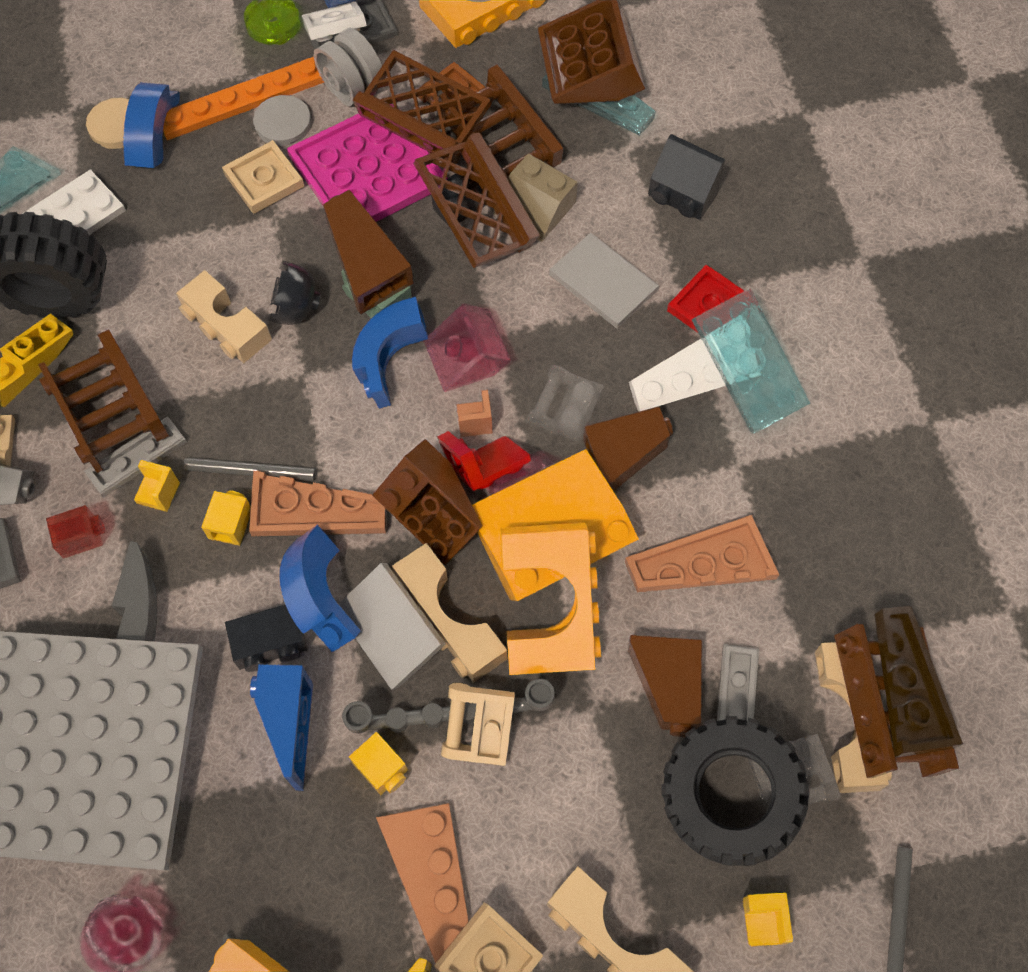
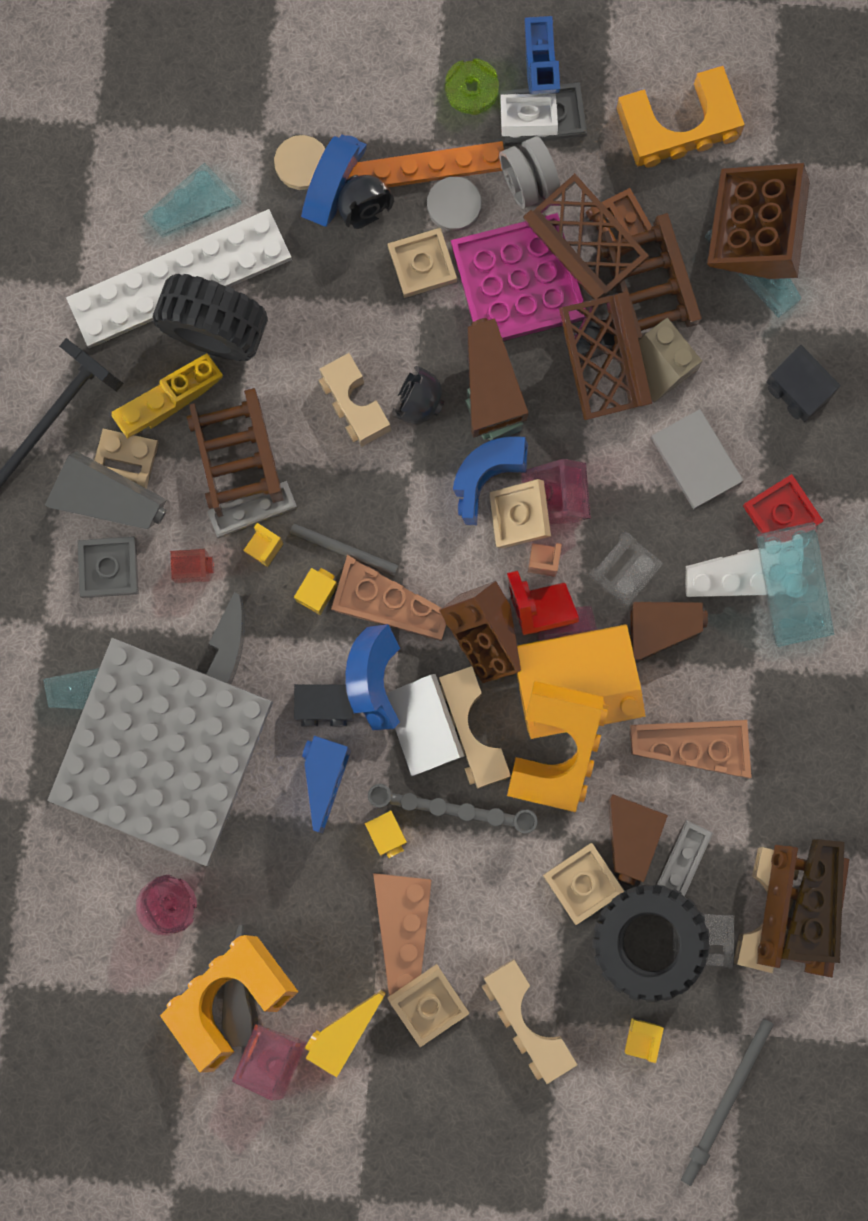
camera: 20 degrees right, 15 degrees up
(187, 132) = (363, 199): none -> black cylinder
(433, 376) = (520, 514): none -> tan plate
(490, 726) = (480, 831): tan plate -> none
(629, 752) = (583, 883): none -> tan plate

